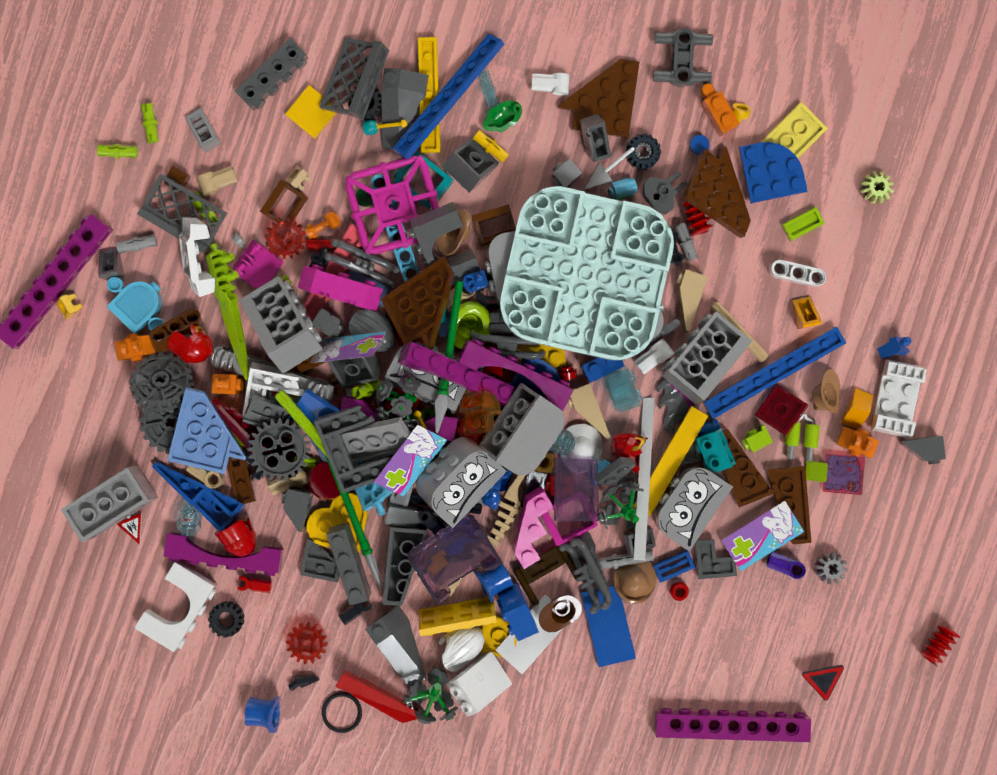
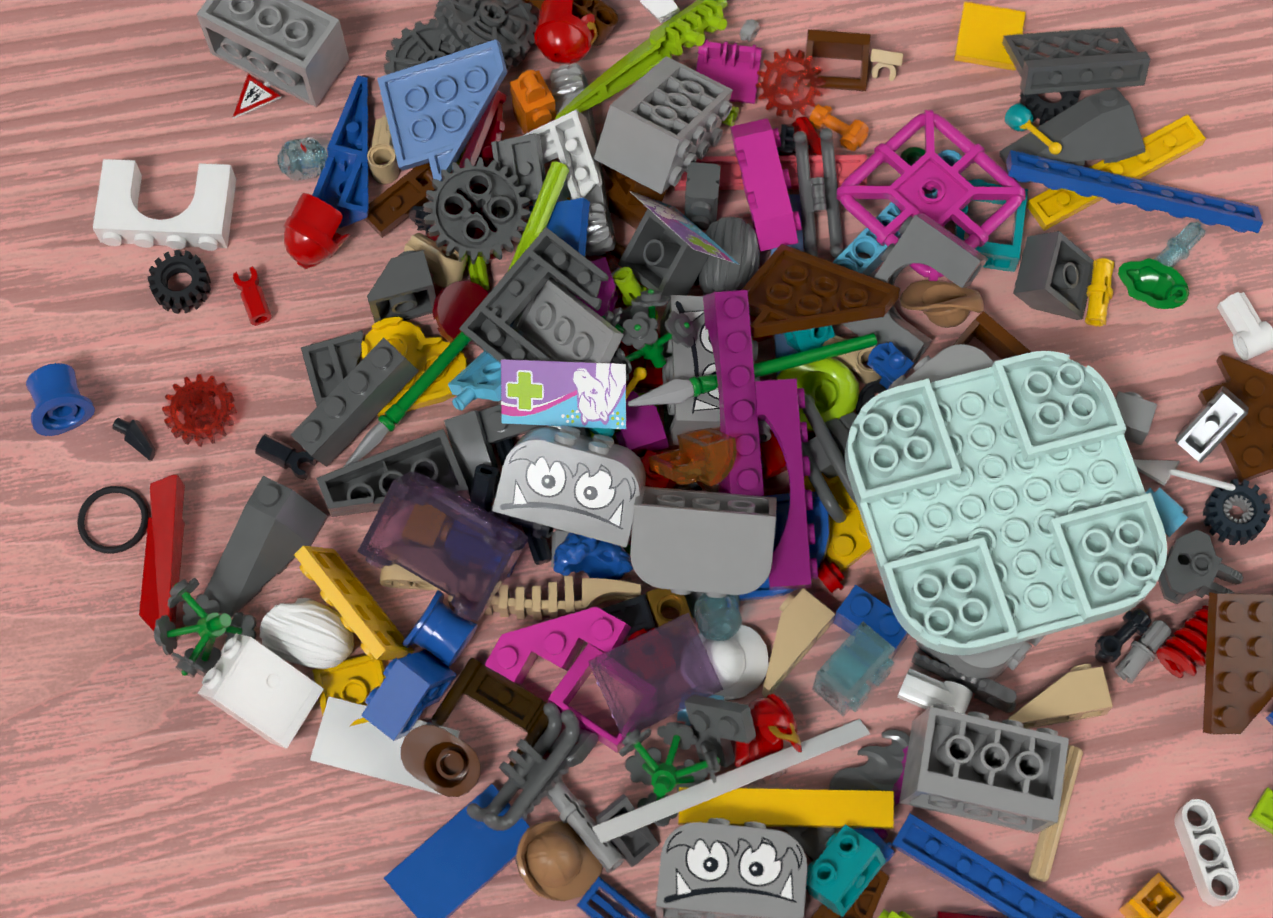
camera: 65 degrees right, 20 degrees down
(181, 547) = (299, 290): magenta arch -> none

